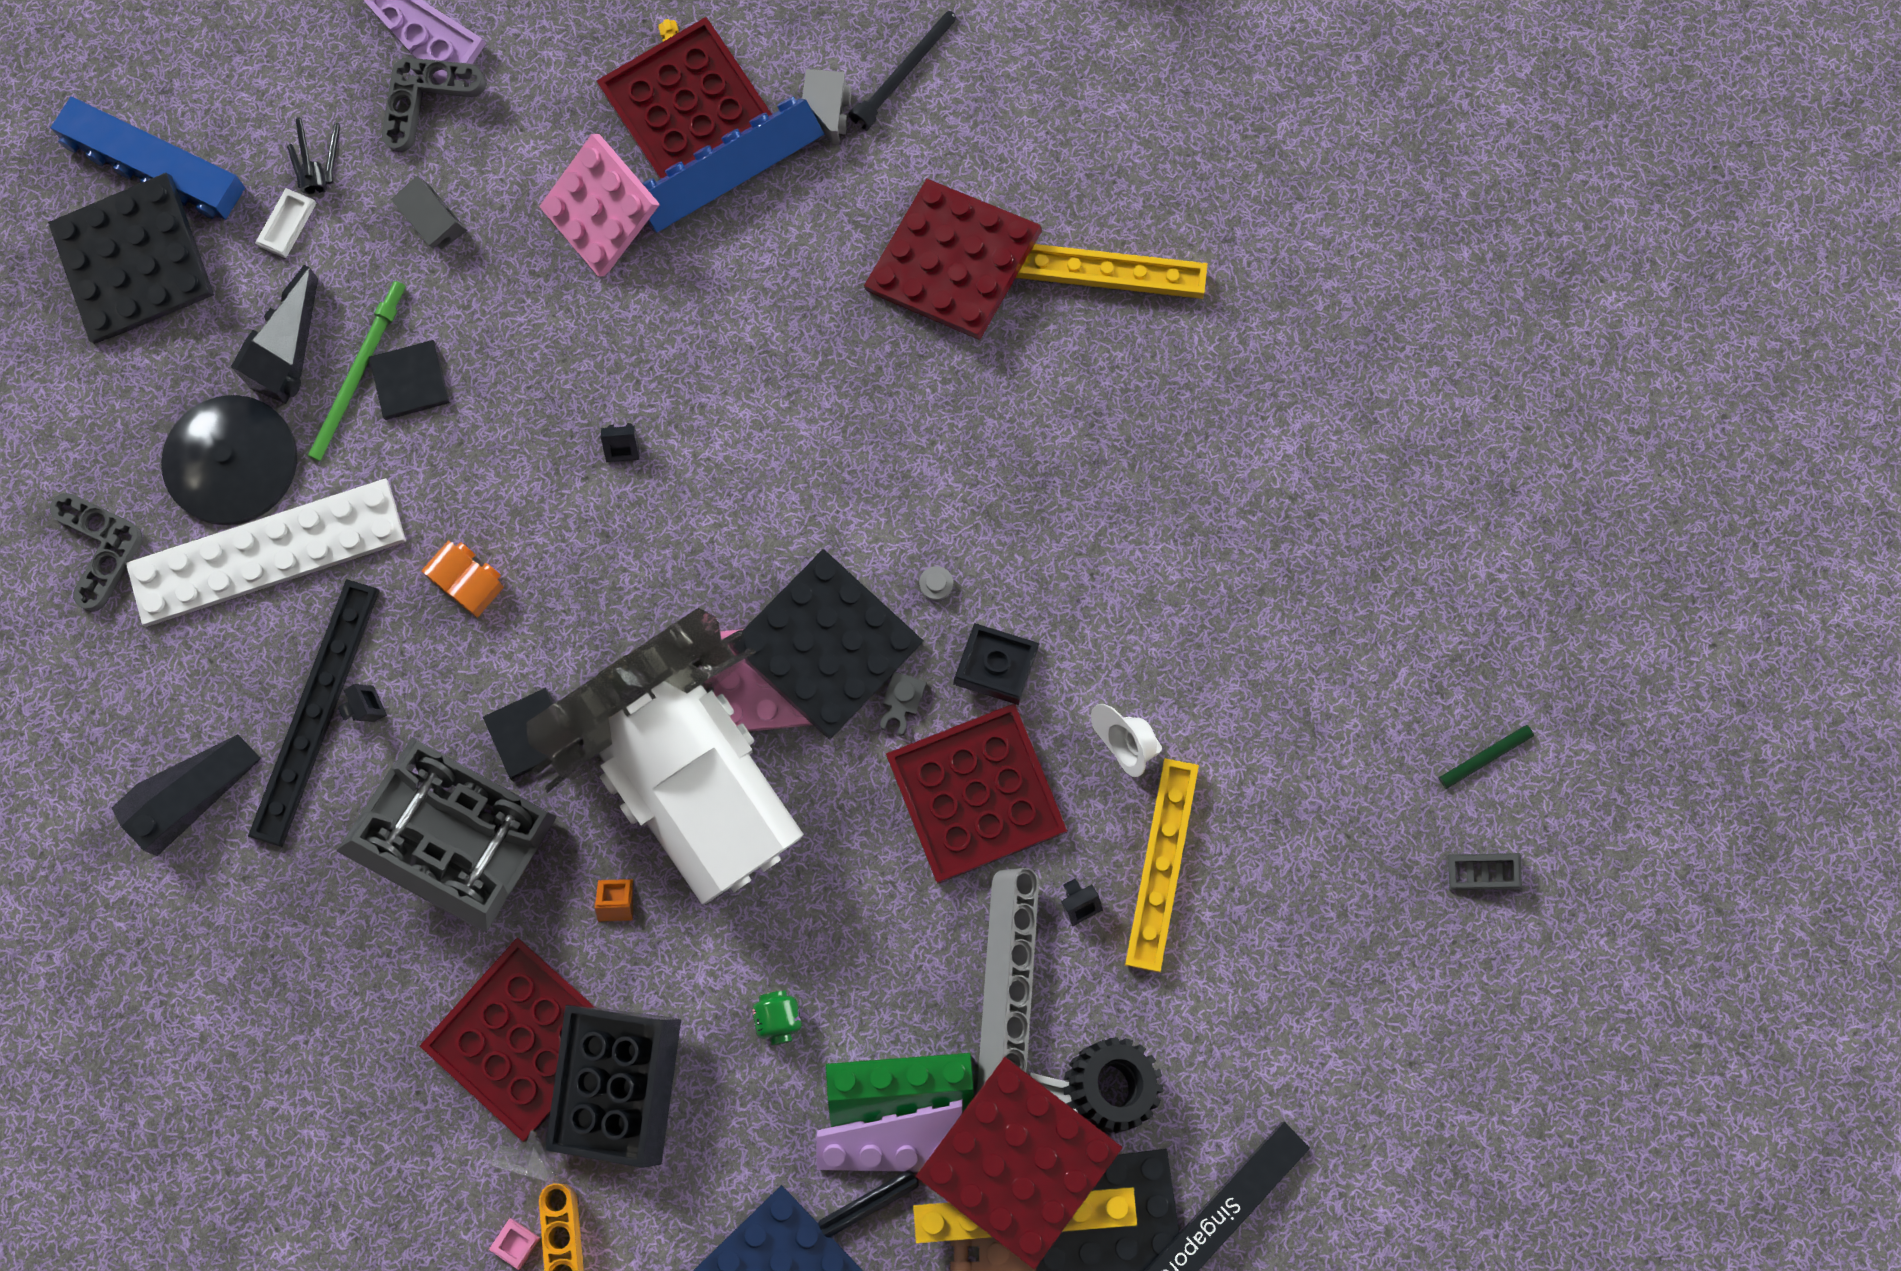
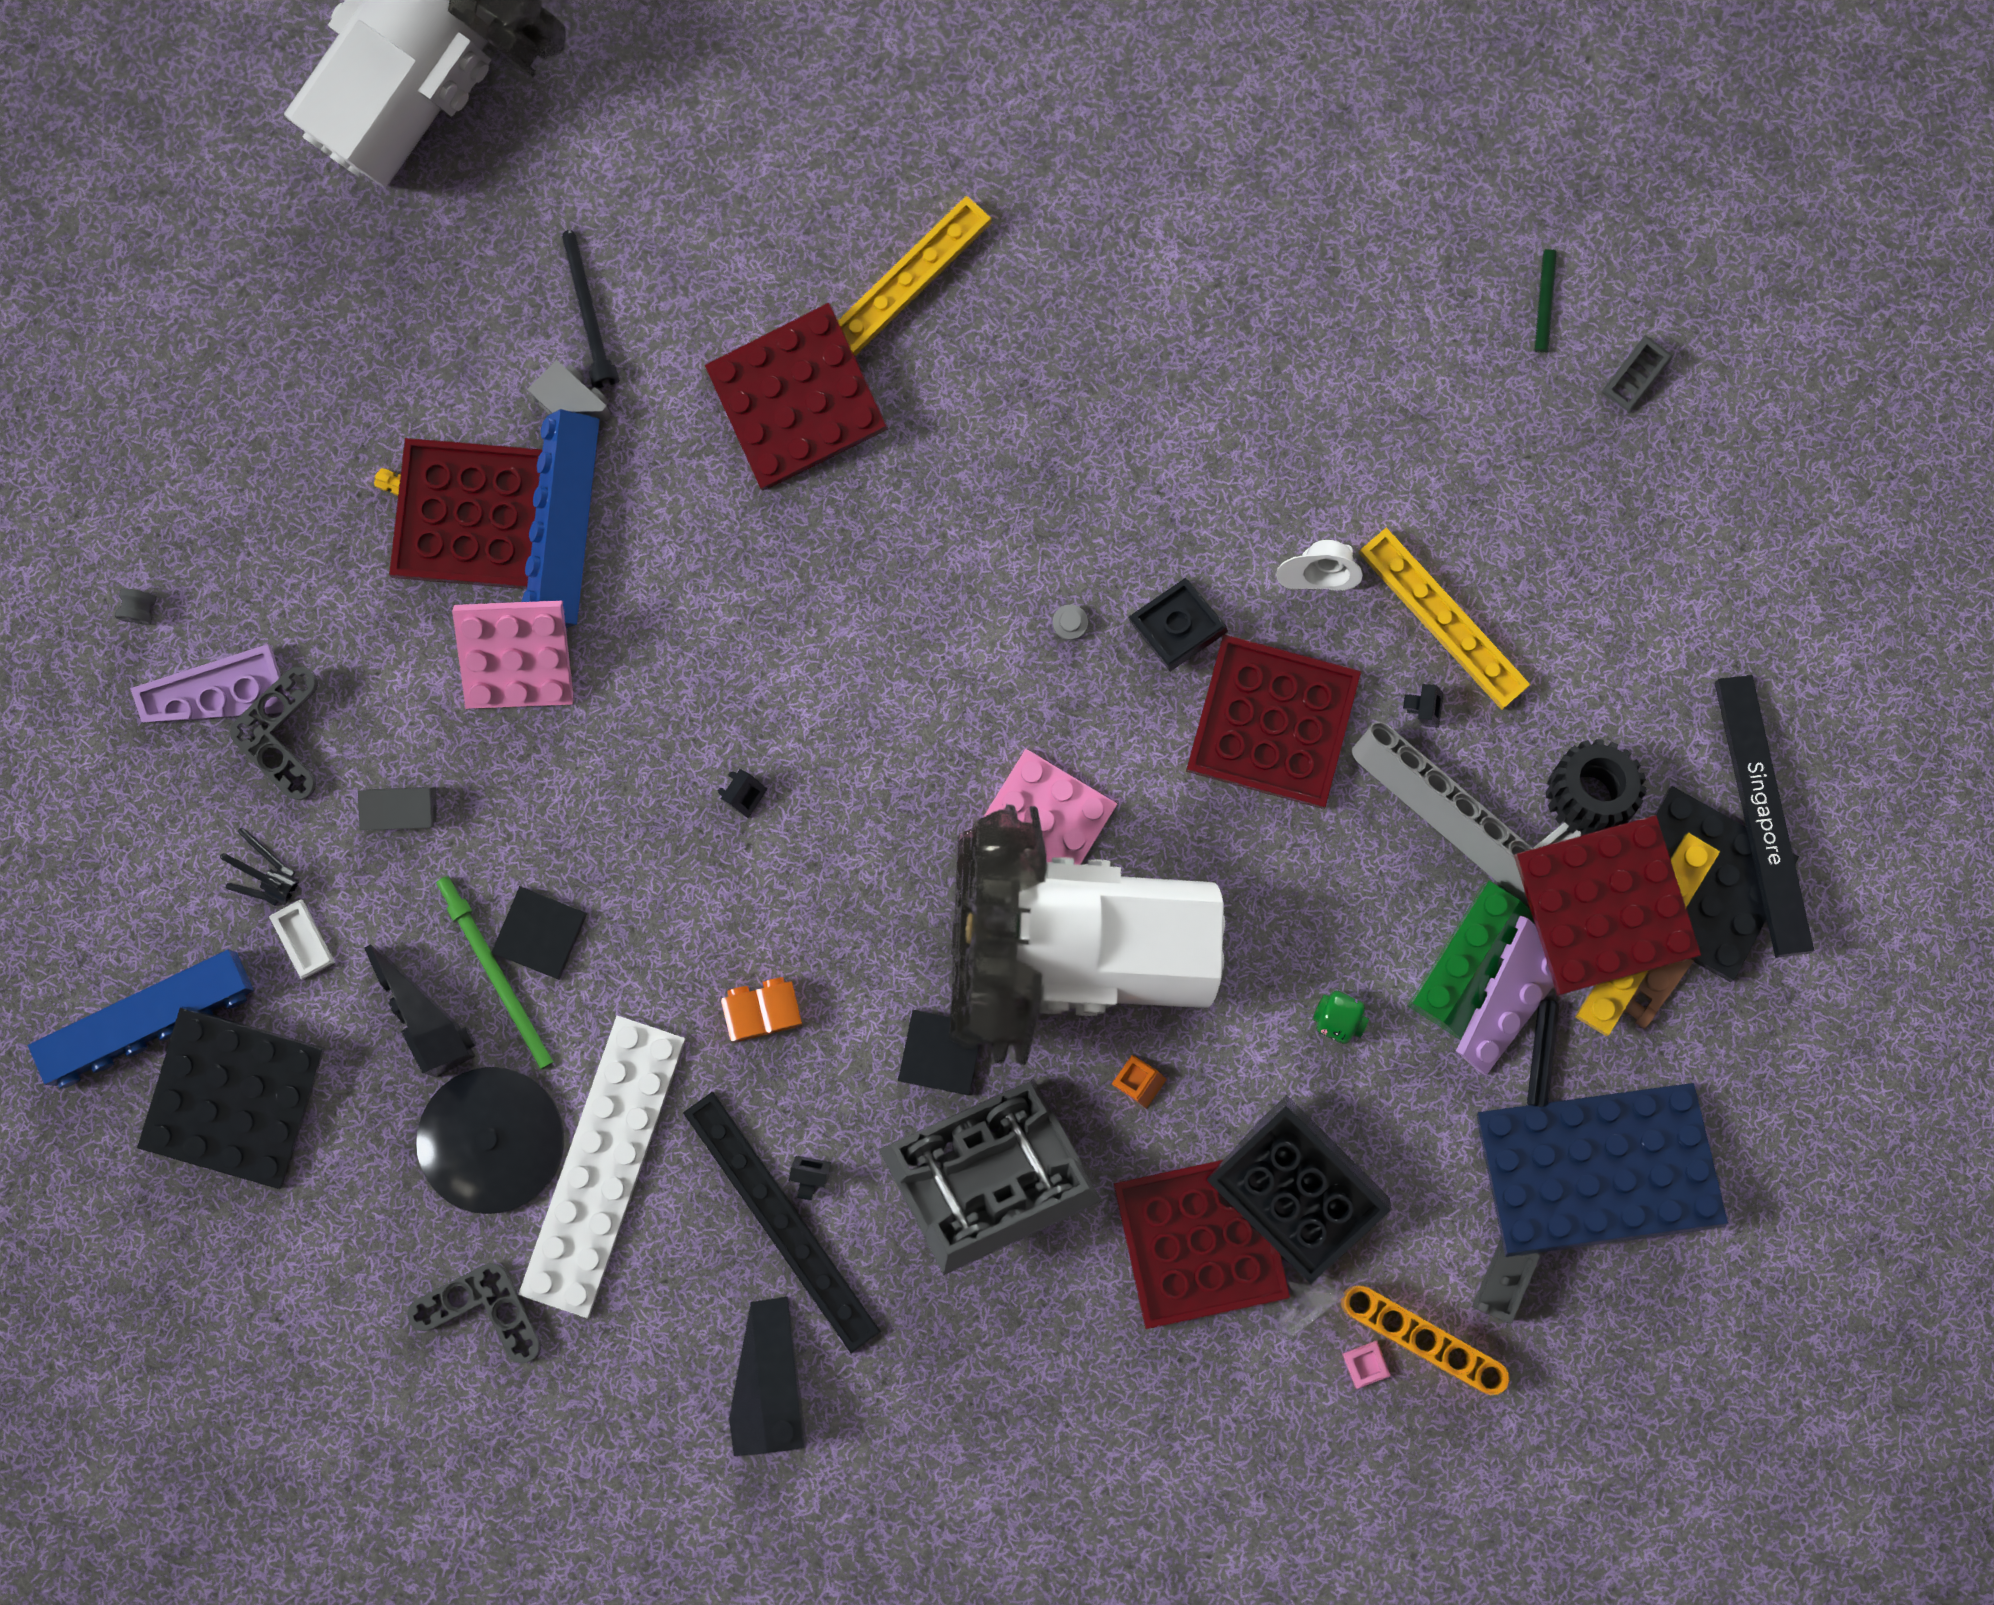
camera: 55 degrees left, 5 degrees up
(827, 644) = (1058, 746): black plate -> none
(902, 697) = (1146, 721): dark grey plate -> none

